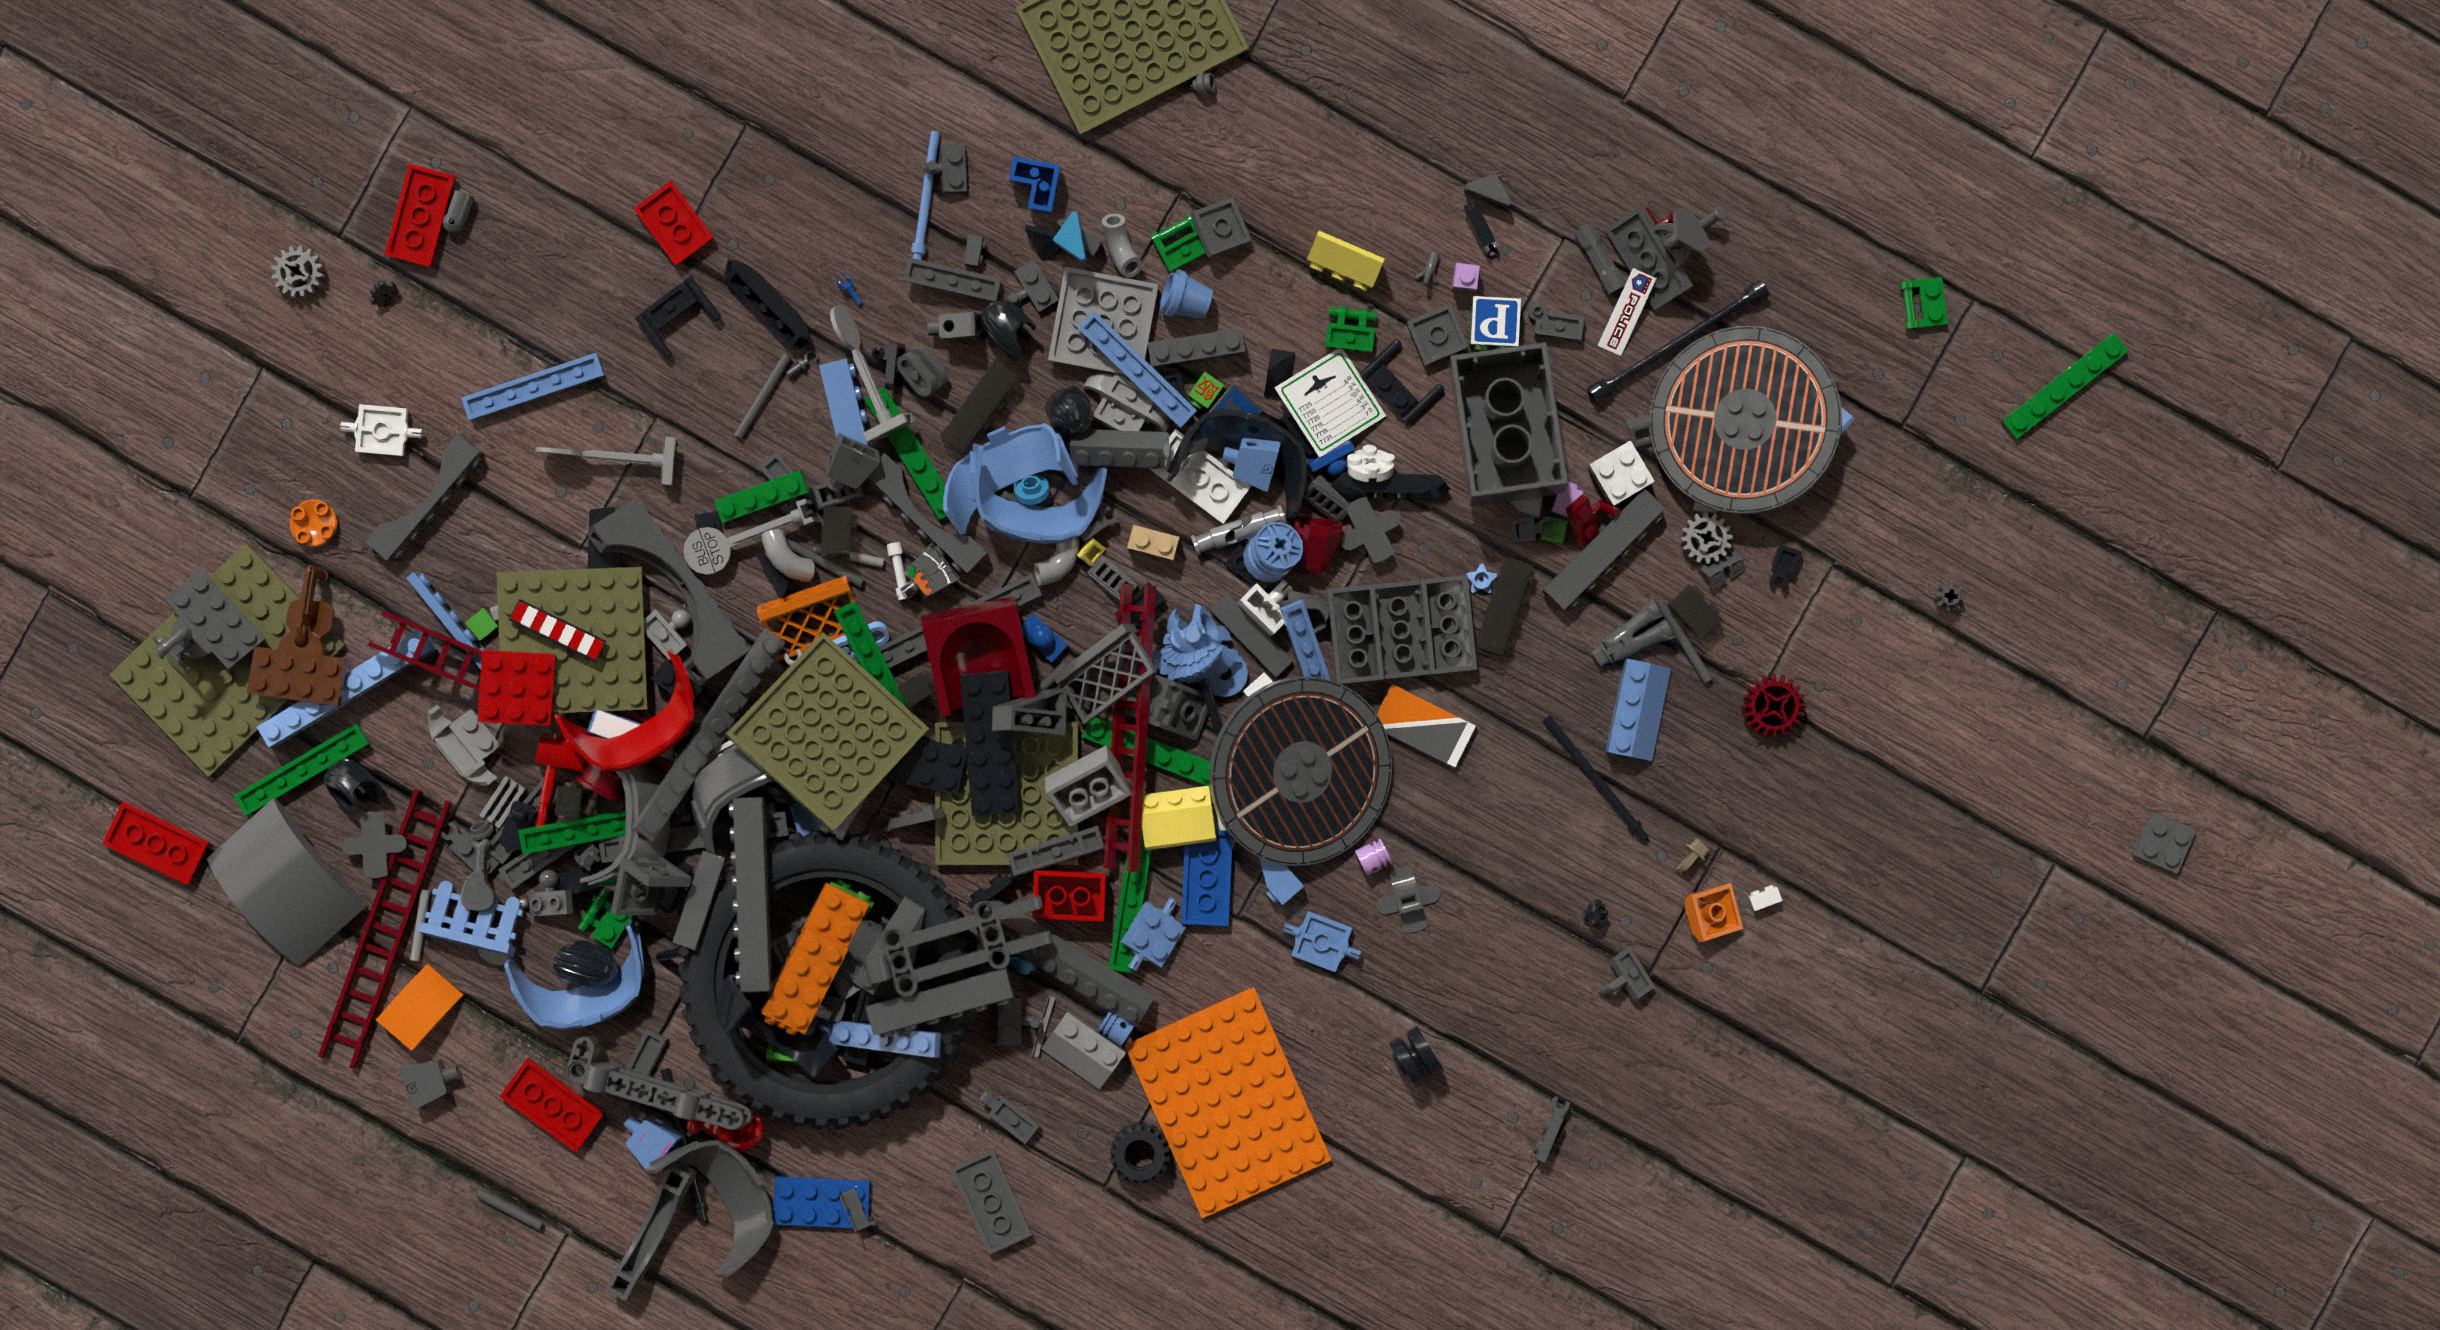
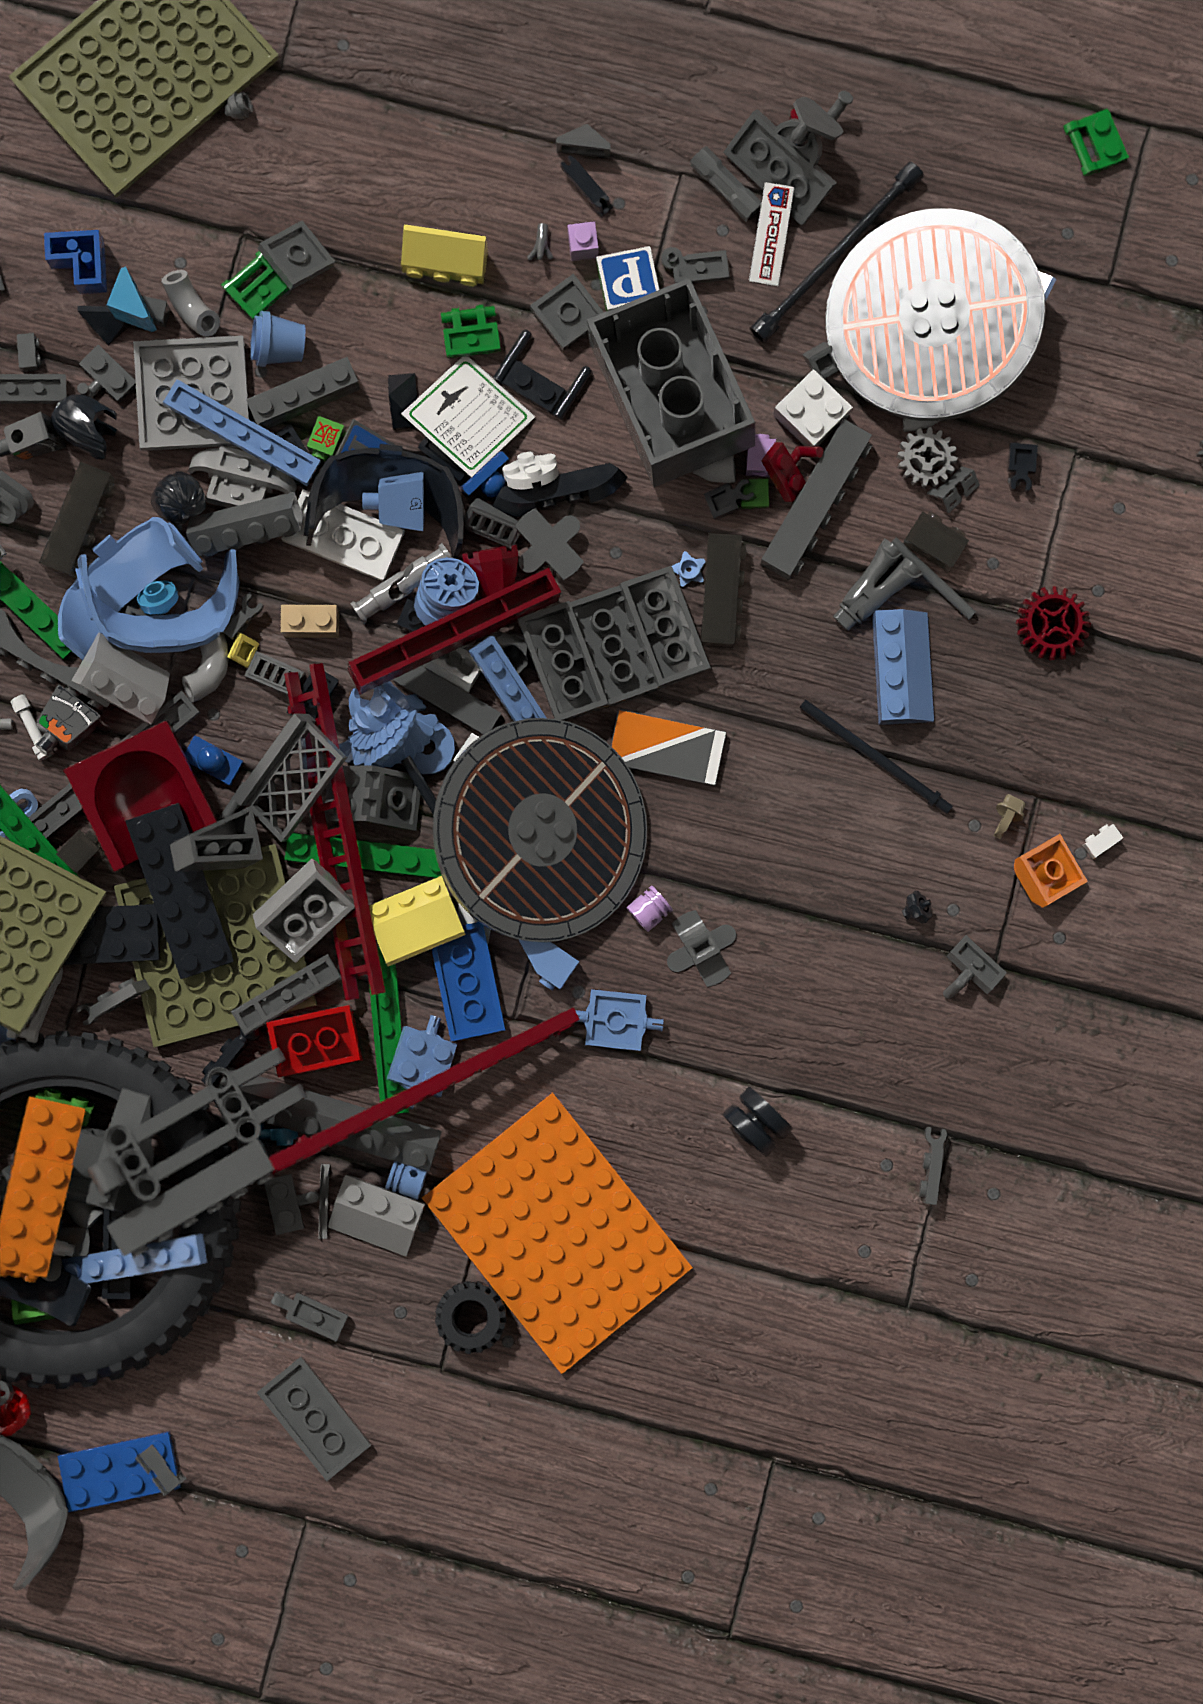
camera: 20 degrees left, 5 degrees down
(987, 554) = (123, 679): none -> light grey slope
(1045, 984) = (309, 1146): none -> dark red ladder
(1272, 588) = (454, 631): none -> dark red brick

